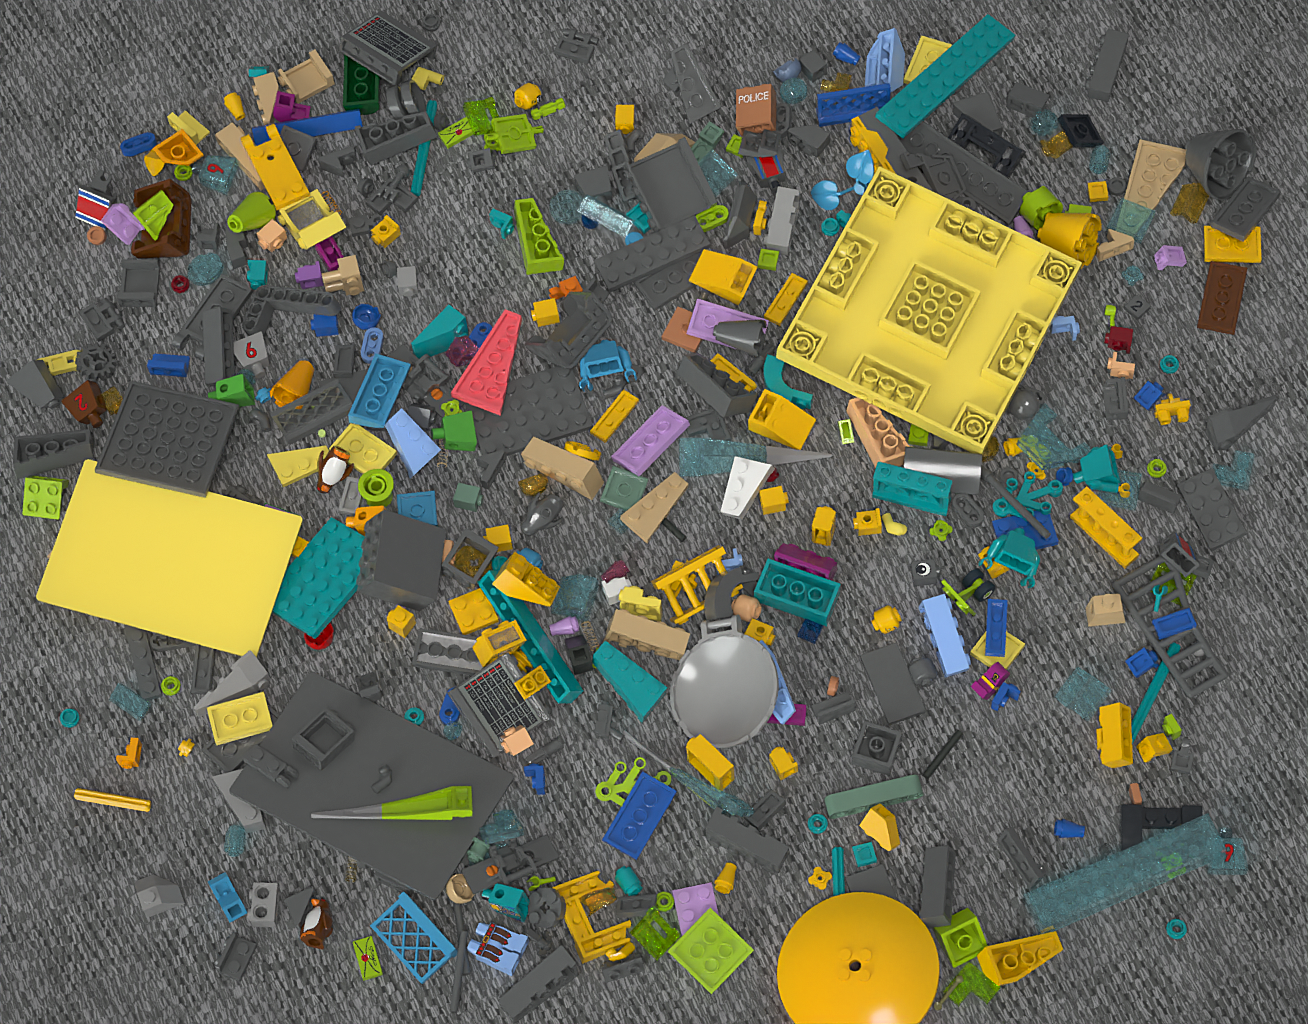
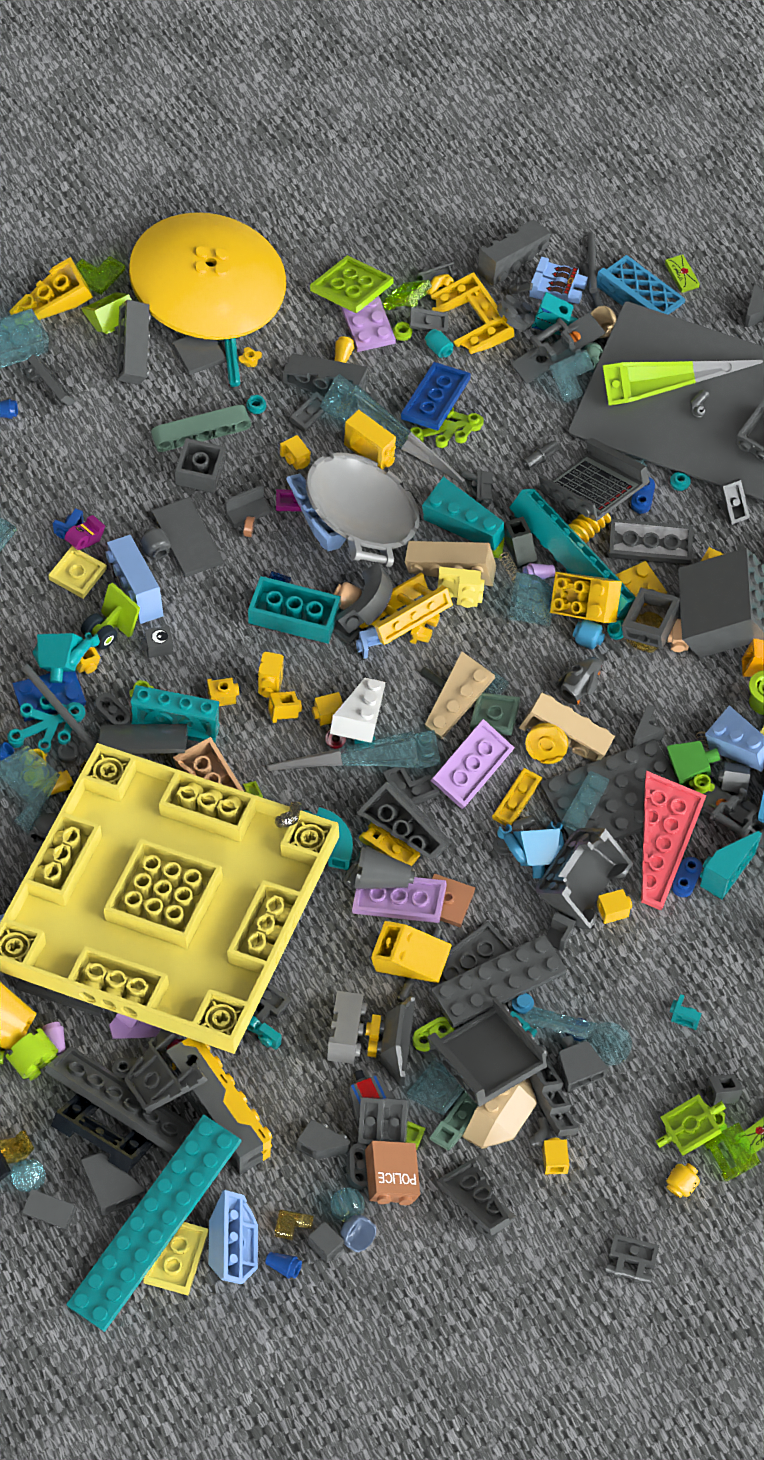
camera: 165 degrees right, 5 degrees down
(317, 924) = (736, 290): reddish brown animal -> none
(418, 506) = (718, 681): dark azure plate -> none
(461, 351) = (701, 849): clear pink brick -> none
(468, 497) = (665, 695): sand green brick -> none
(499, 537) = (624, 654): yellow brick -> none
(499, 641) = (604, 530): yellow piece -> none
(515, 740) = (570, 457): light nougat brick -> none
(532, 682) = (566, 485): yellow slope -> none
(533, 485) = (597, 710): clear yellow hair -> none
(537, 245) = (638, 985): lime wedge -> none
(537, 882) = (525, 342): lime hand -> none
(538, 780) = (543, 431): blue bracket -> none
(547, 109) = (654, 1170): lime axle -> none
(556, 399) = (585, 801): none -> clear light blue plate
(565, 287) = (592, 941): orange plate -> none
(598, 899) = (465, 319): clear yellow piece -> none
(613, 589) = (488, 608): white brick -> none
(616, 570) = (491, 629): clear pink cone -> none
(761, 631) = (330, 571): yellow brick -> none
(768, 259) = (360, 984): lime plate -> none
(780, 420) = (329, 789): yellow slope -> none
(785, 299) = (334, 943): yellow tile -> none
(803, 505) = (284, 705): none -> yellow brick
(806, 561) = (288, 636): magenta slope -> none
(816, 352) = (289, 818): none -> clear smoke arm
(830, 227) = (289, 1032): teal plate -> none
(845, 109) = (274, 1180): blue fence -> none
(859, 167) = (252, 1076): dark azure plant -> none
(864, 854) = (207, 378): teal plate -> none
(882, 827) = (192, 397): yellow slope -> none
(886, 619) = (196, 593): yellow head -> none
(893, 527) = (189, 688): light yellow arm -> none
(938, 1005) = (109, 271): olive hinge -> none
(942, 754) = (132, 474): pearl dark grey bar -> none
(996, 628) = (79, 581): blue plate -> none

